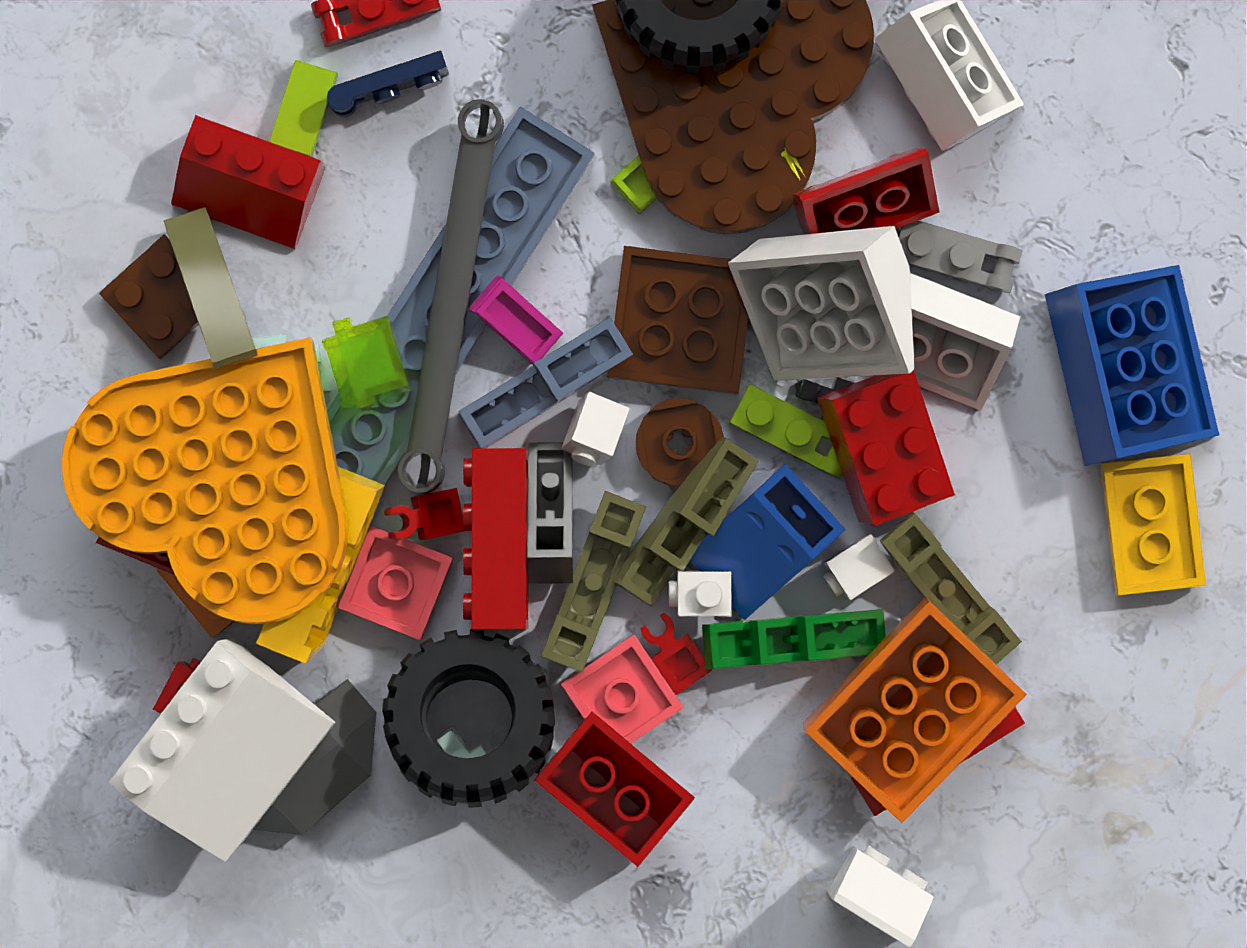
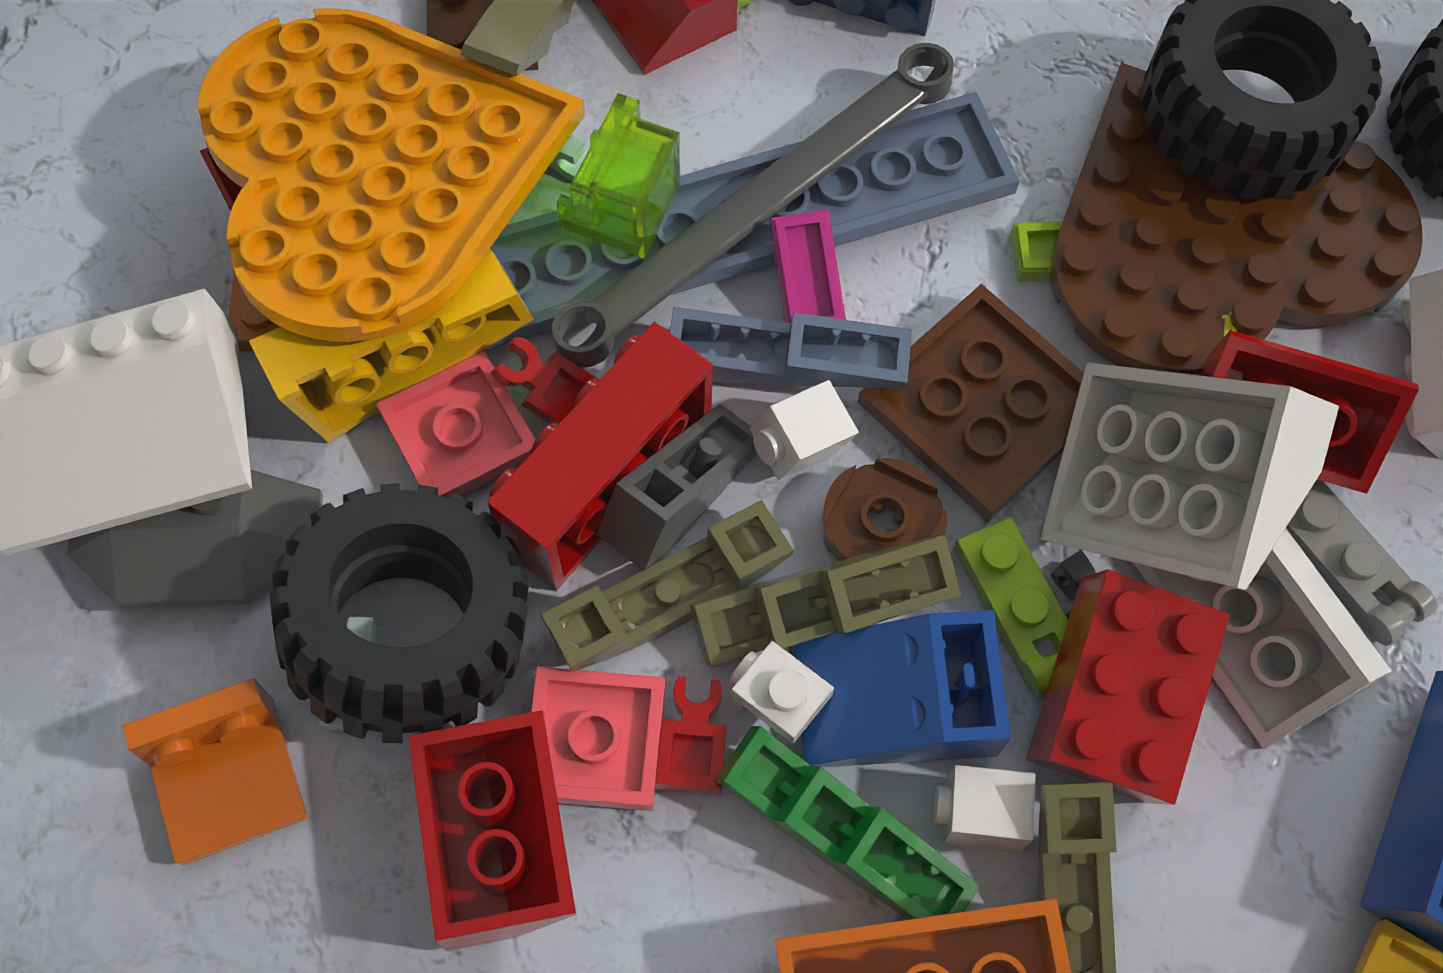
camera: 40 degrees right, 20 degrees down
(445, 873) = (219, 770): none -> orange bracket

